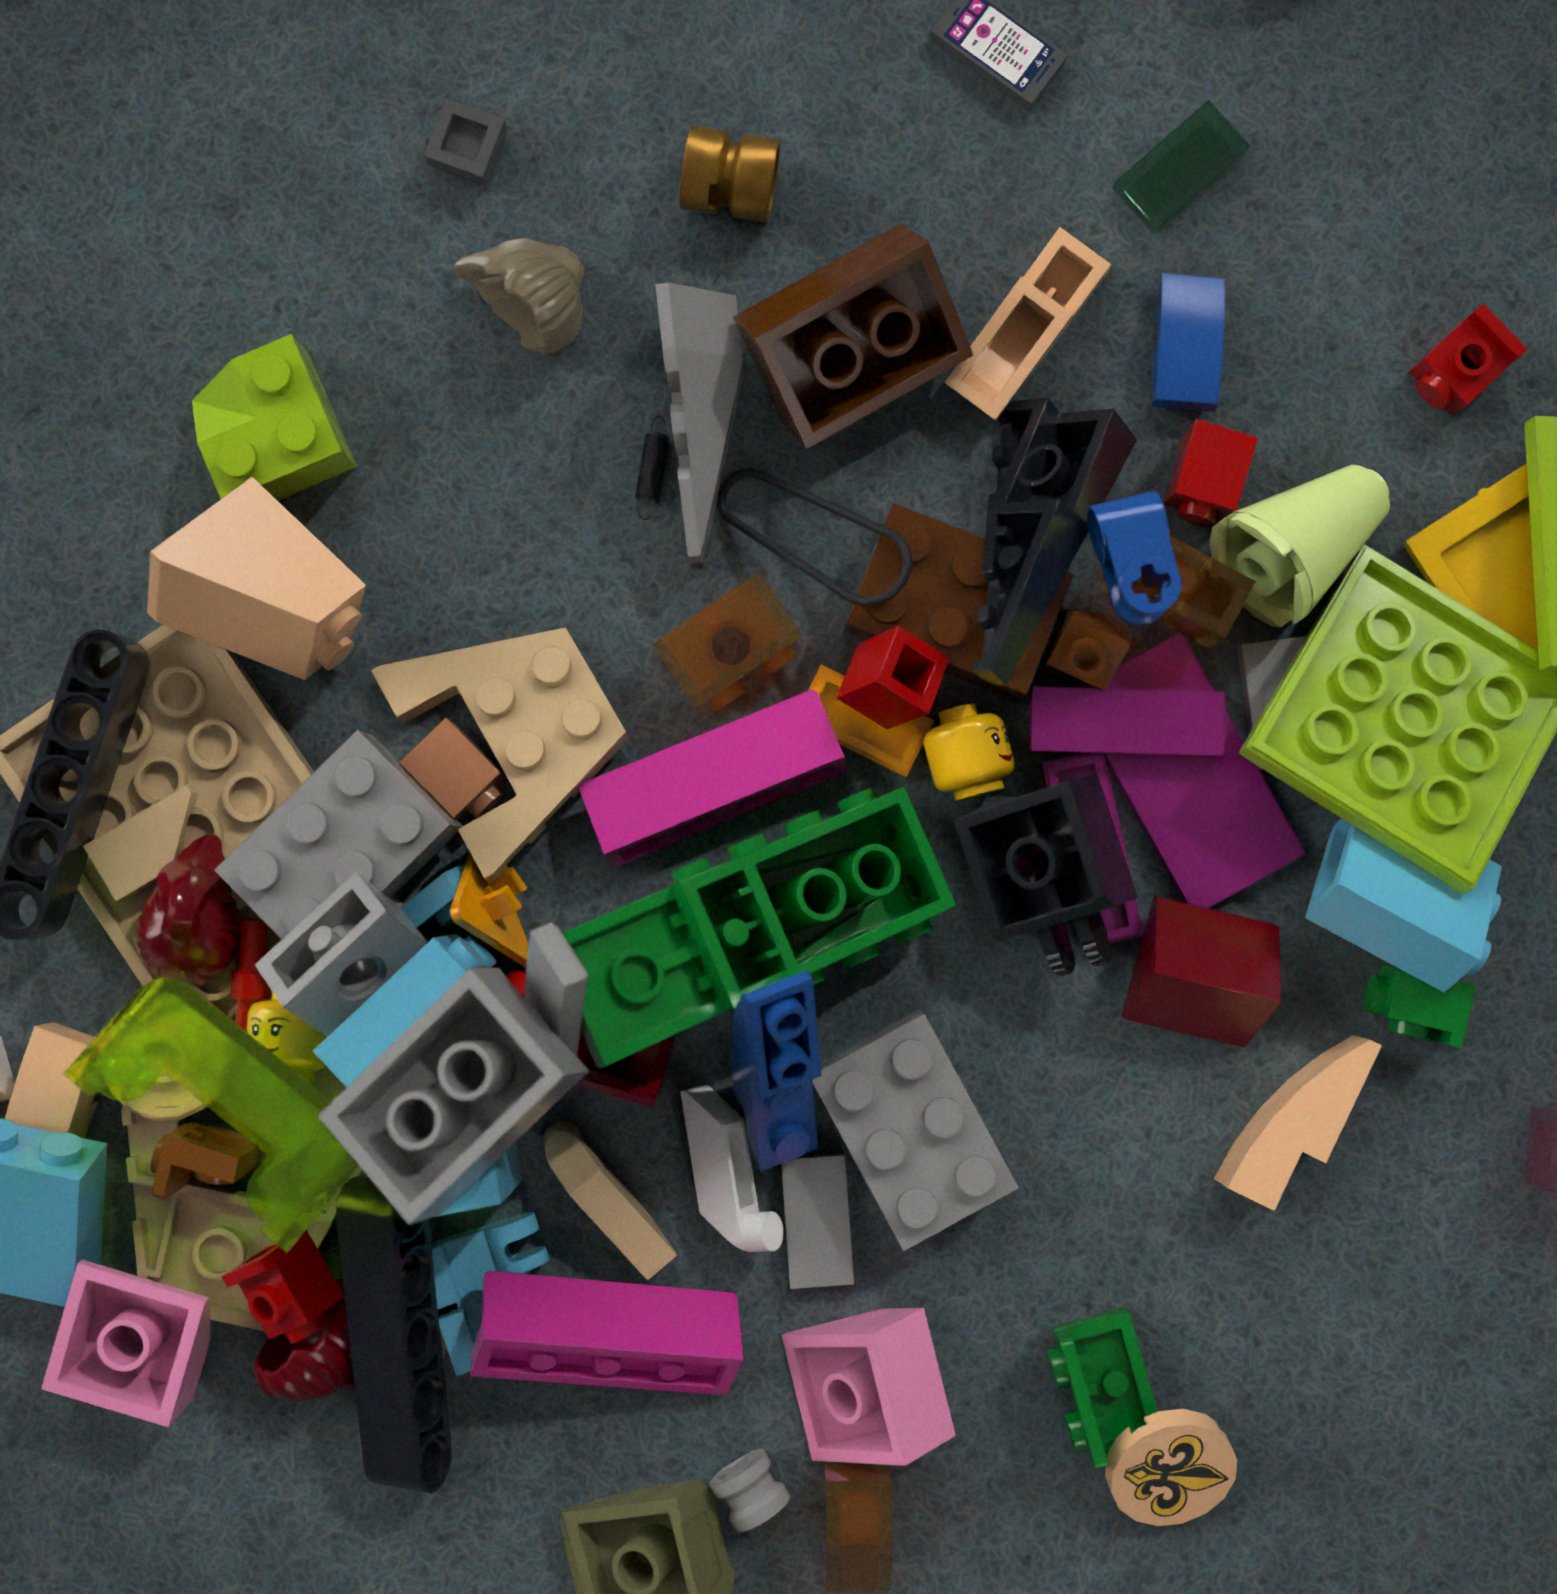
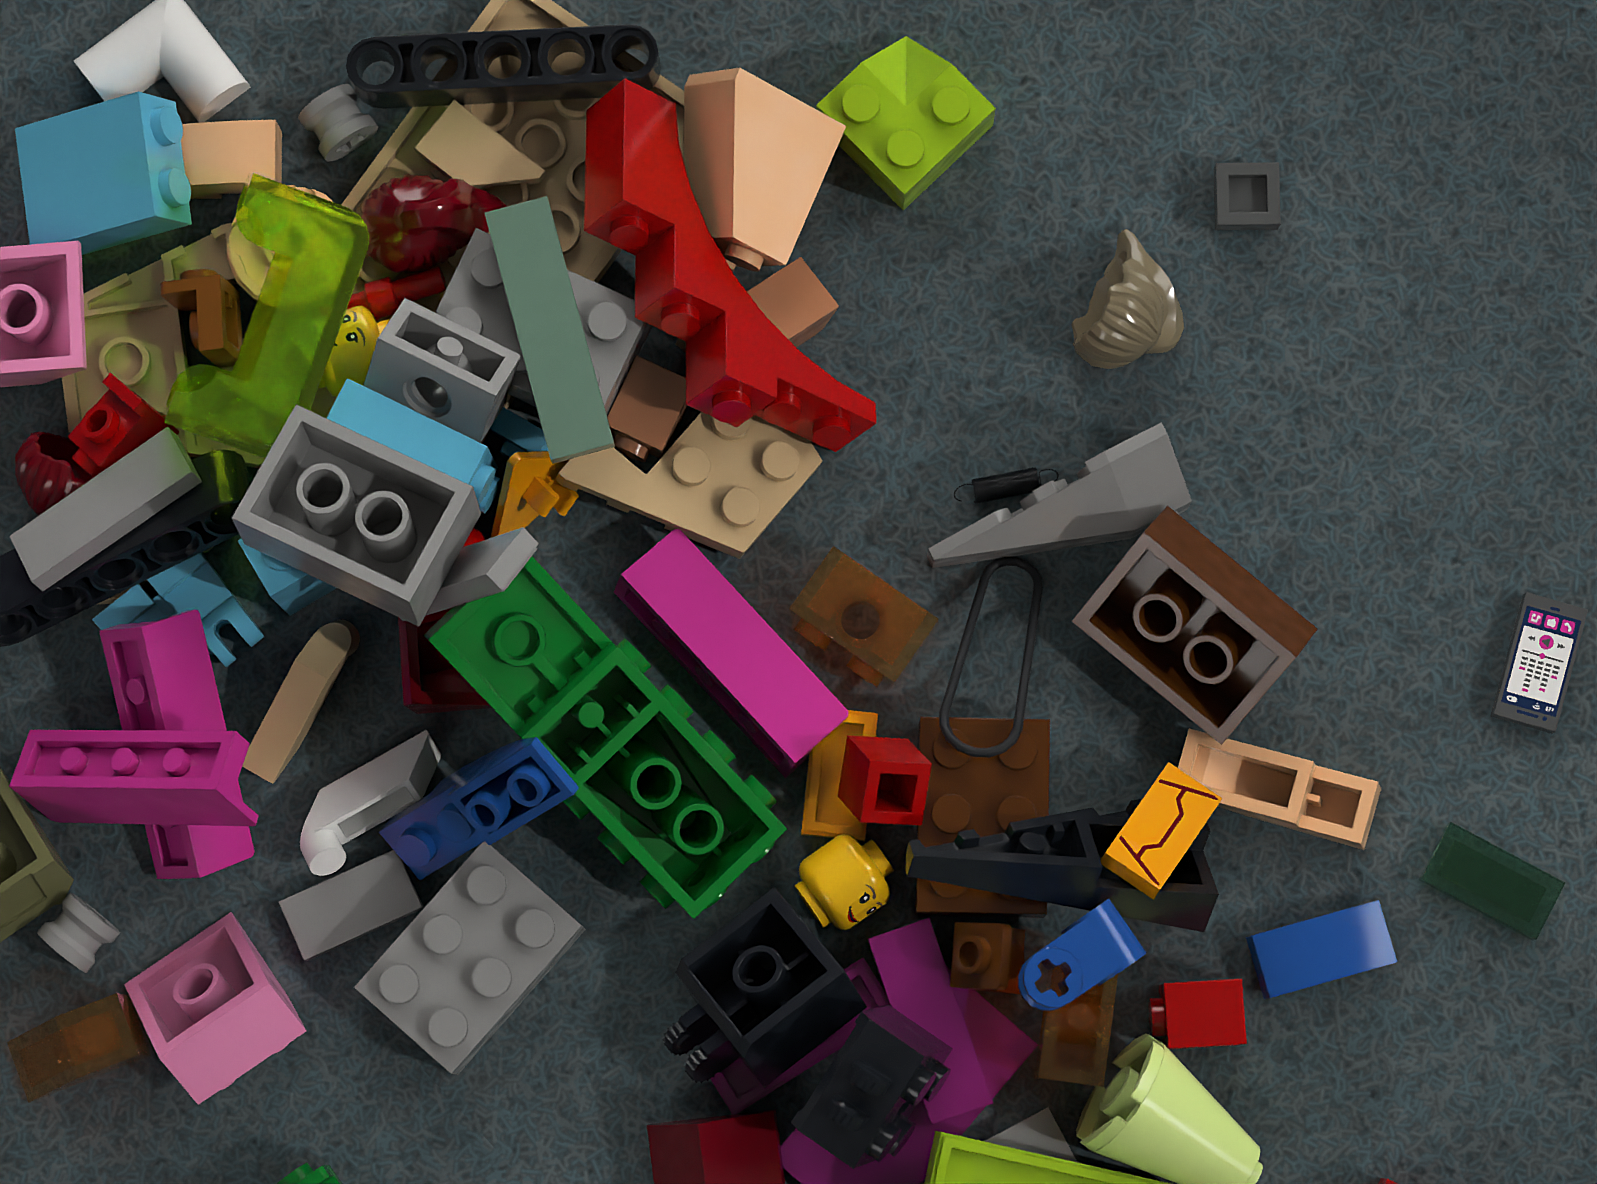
camera: 70 degrees right, 5 degrees down
(64, 965) = (337, 122): none -> light grey wheel
(340, 834) = (549, 330): none -> sand green tile
(346, 688) = (685, 287): none -> red arch
(353, 1331) = (105, 509): none -> light grey tile
(410, 611) = (795, 301): none -> nougat brick
(624, 1391) = (134, 776): none -> dark pink panel
(729, 173) = (1310, 453): pearl gold wheel -> none
(1037, 438) = (1160, 830): none -> light orange tile
(1188, 804) = (874, 1087): none -> black hinge

